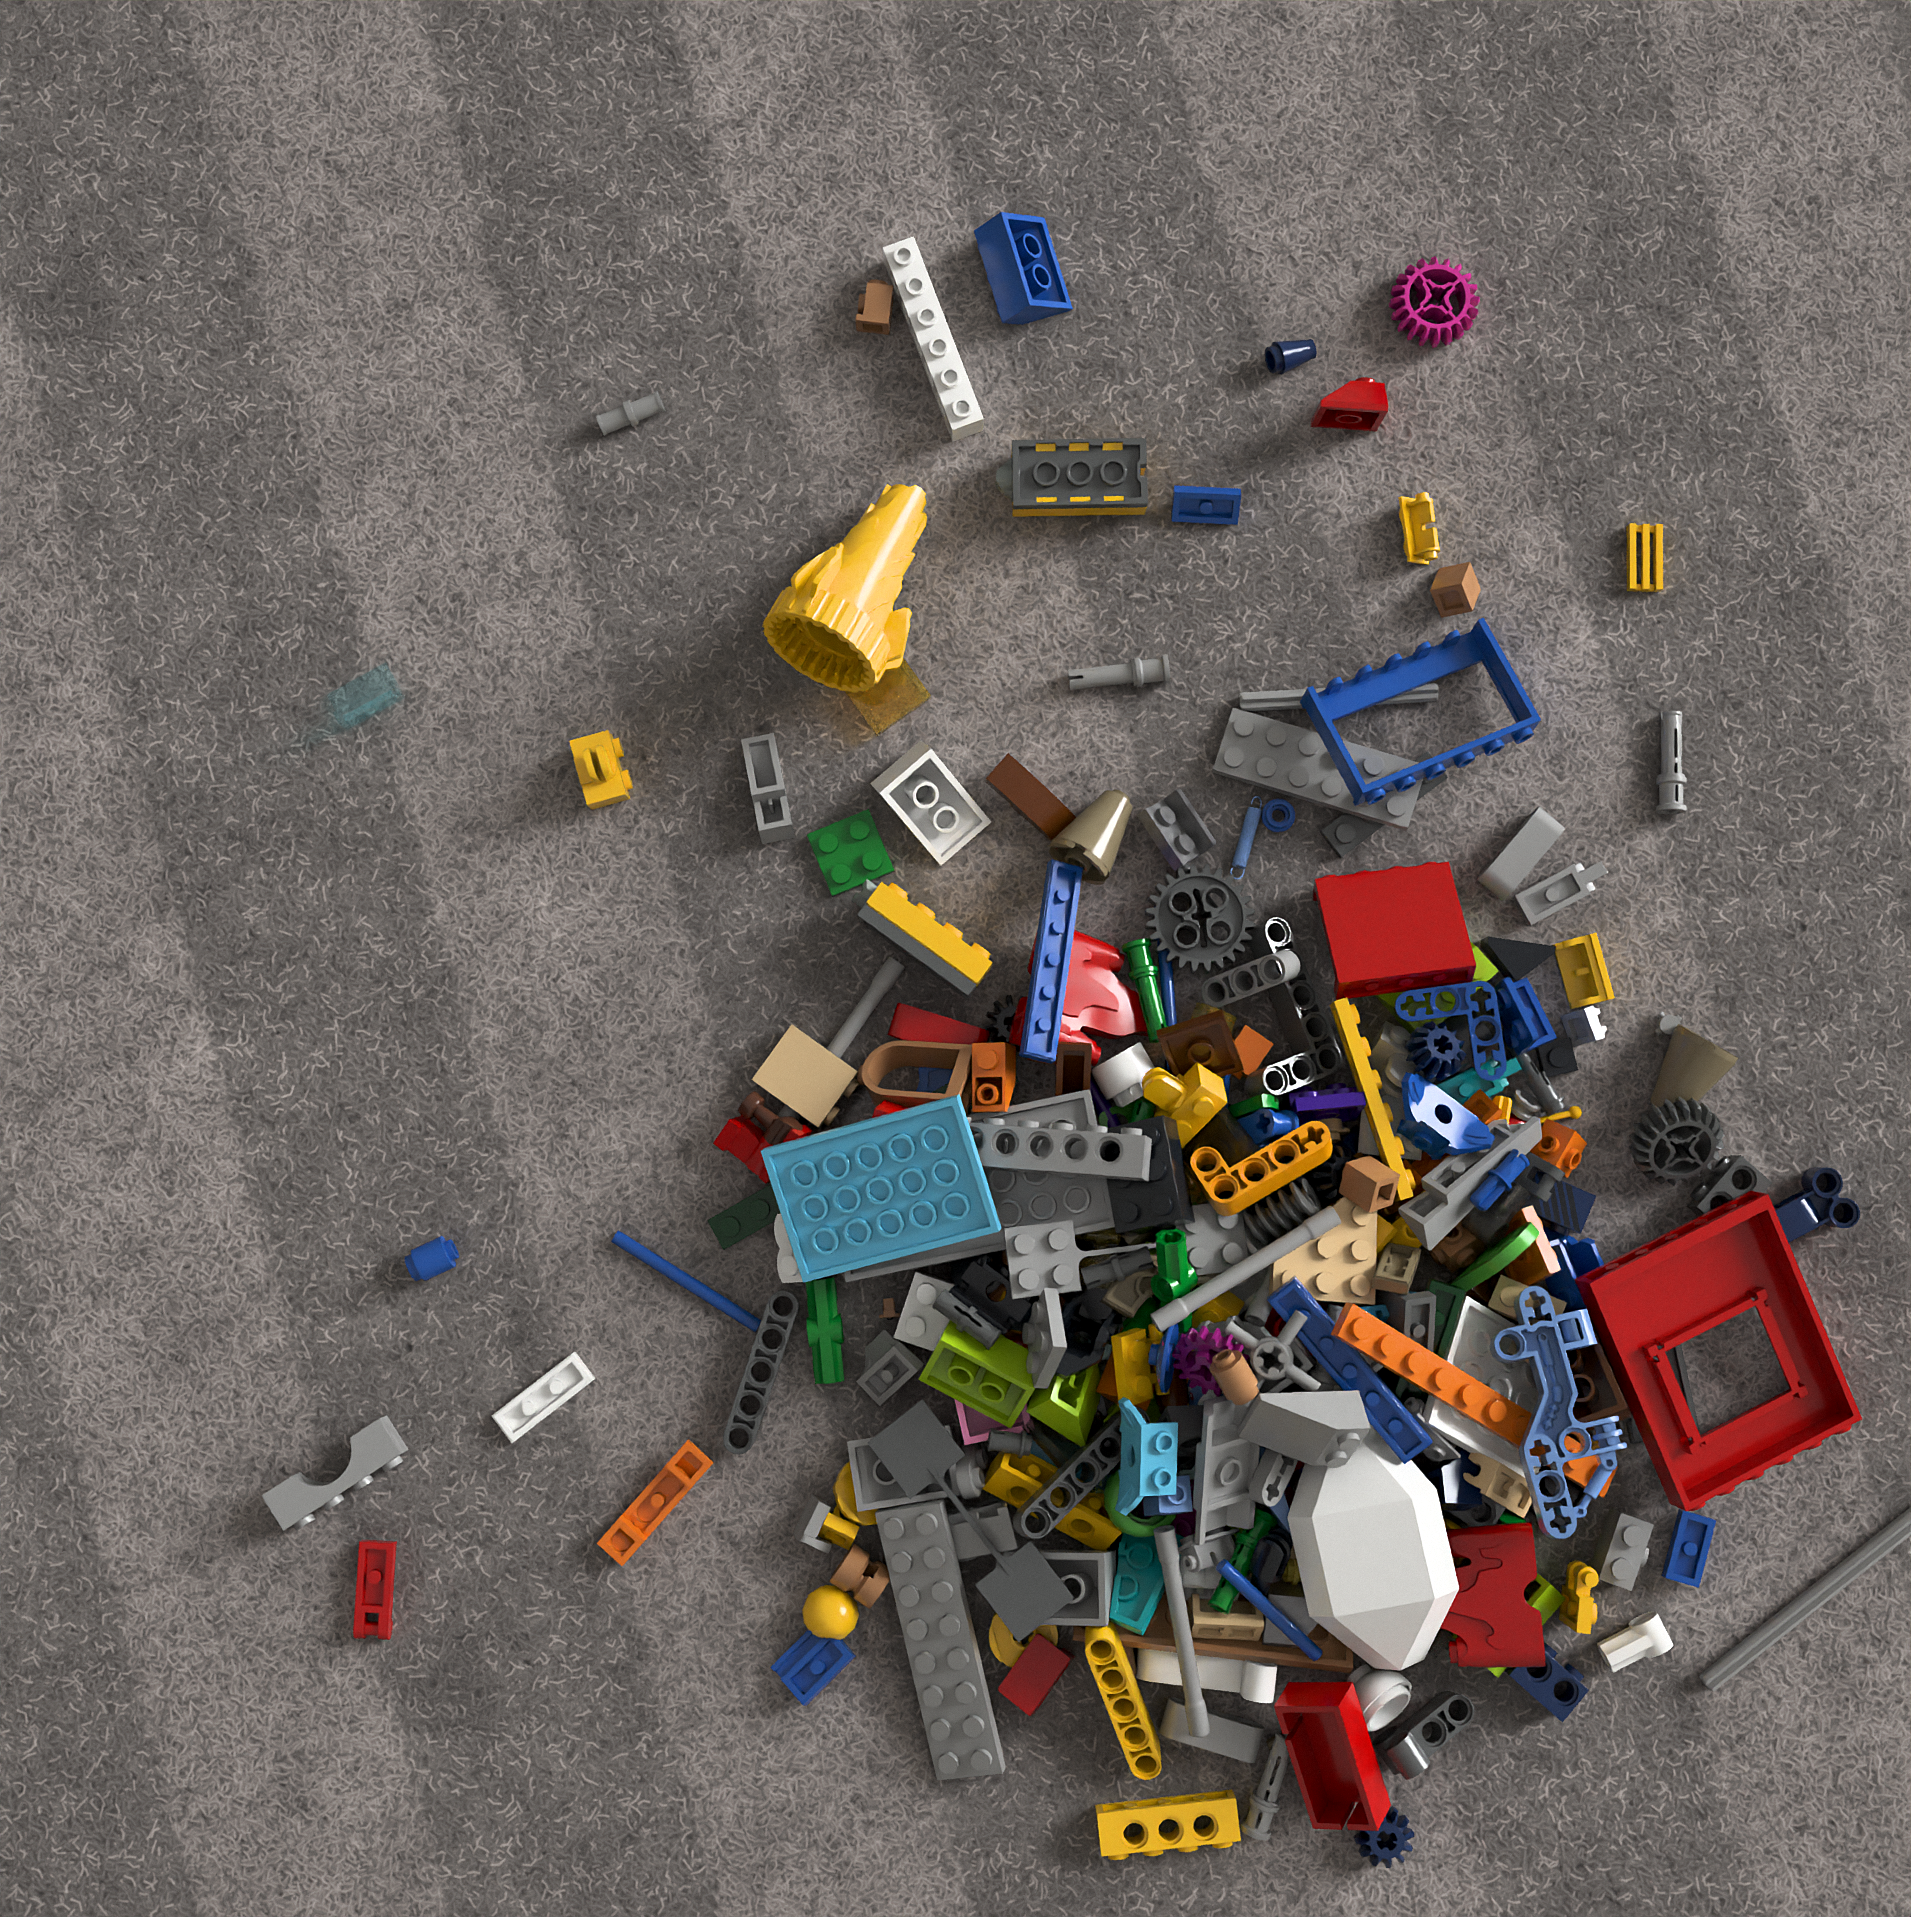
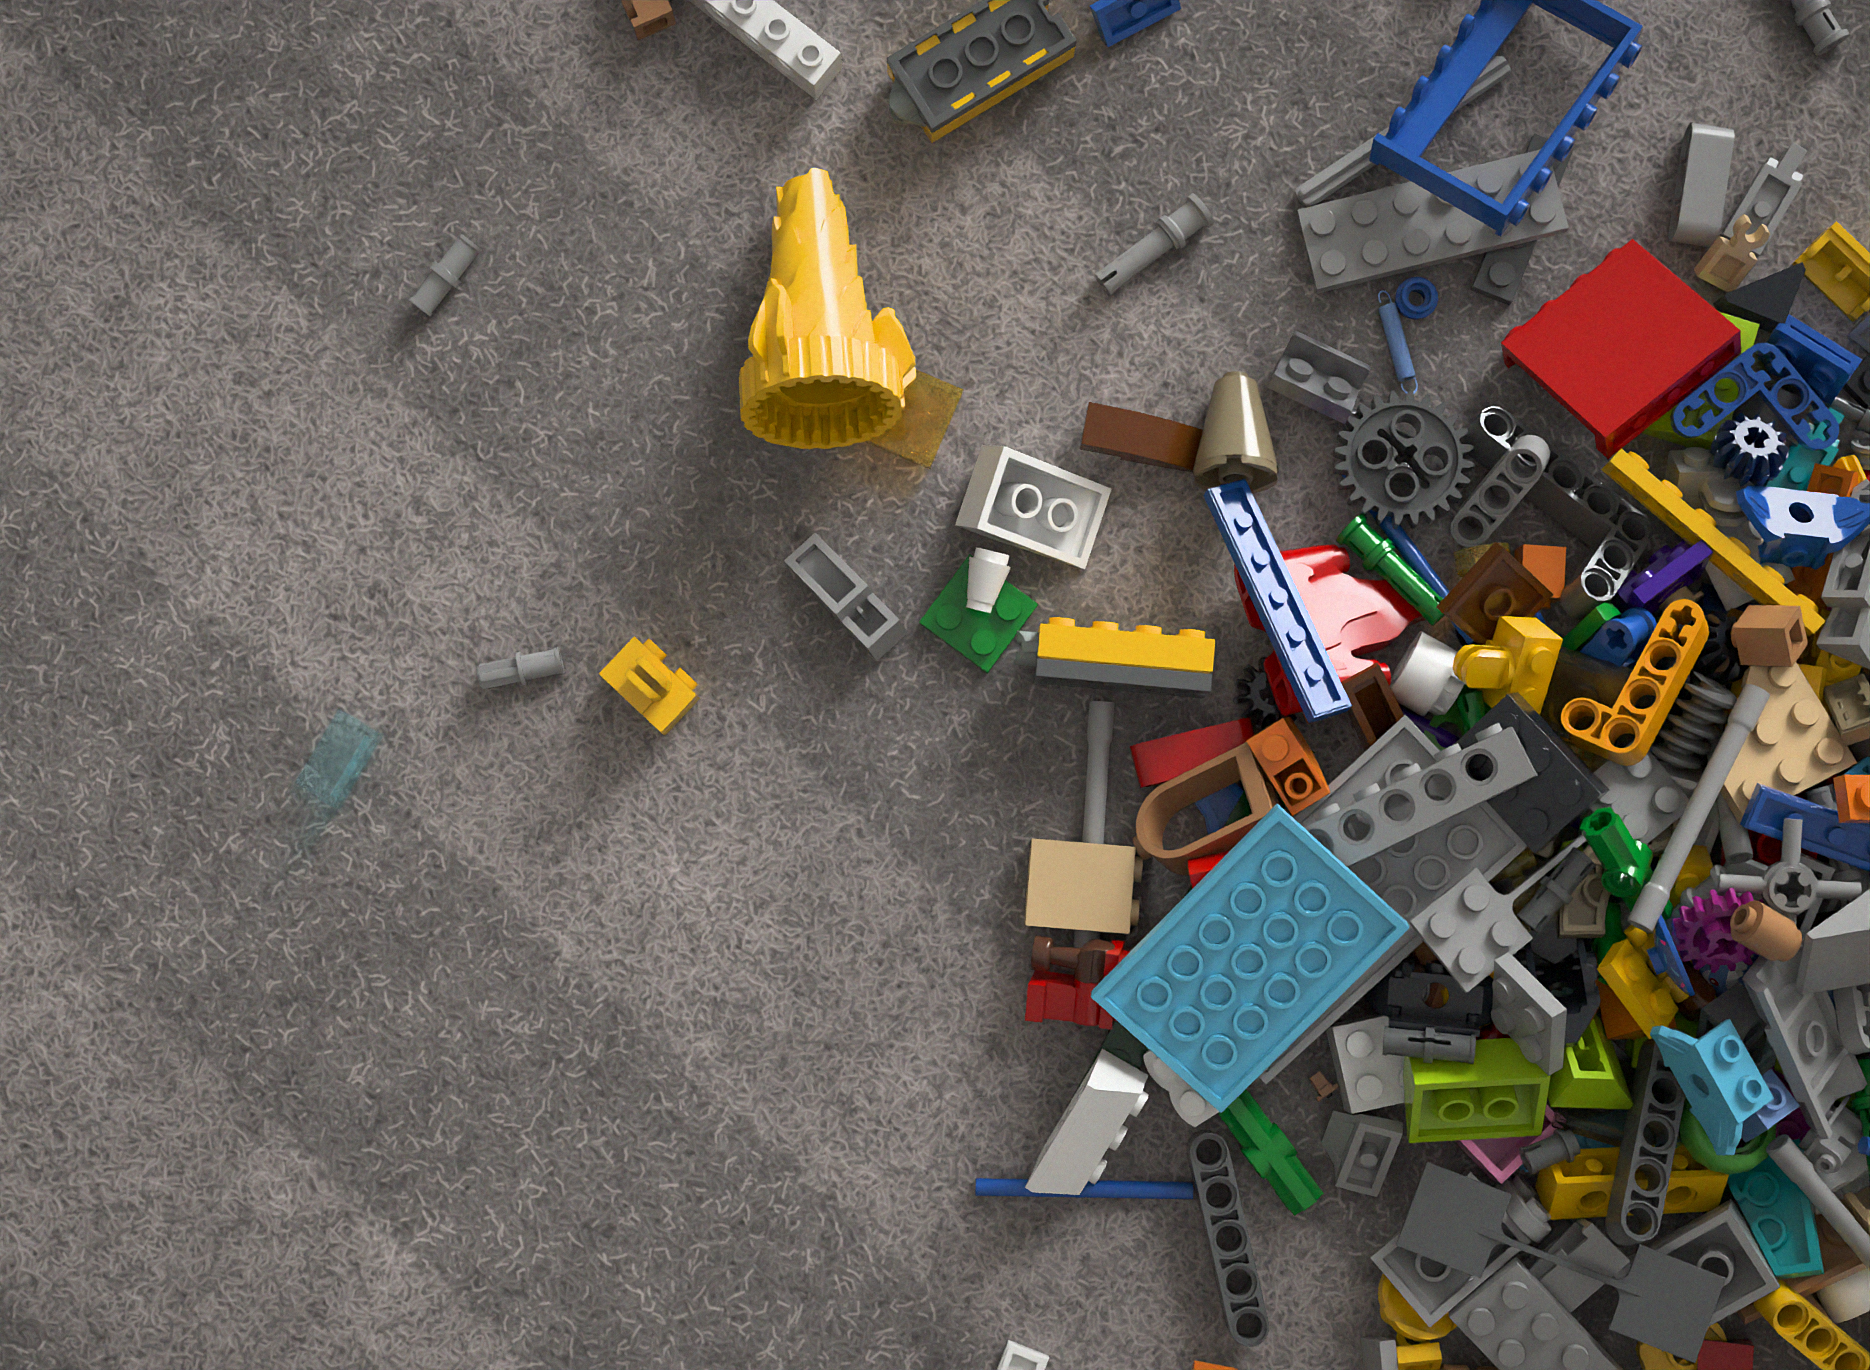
camera: 30 degrees left, 0 degrees up
(431, 1259) = (791, 1334): blue brick -> none
(521, 707) = (520, 668): none -> light grey axle
(710, 1240) = (1089, 1127): none -> white slope
(867, 830) = (985, 578): none -> white cone
(1508, 916) = (1731, 260): none -> tan plate

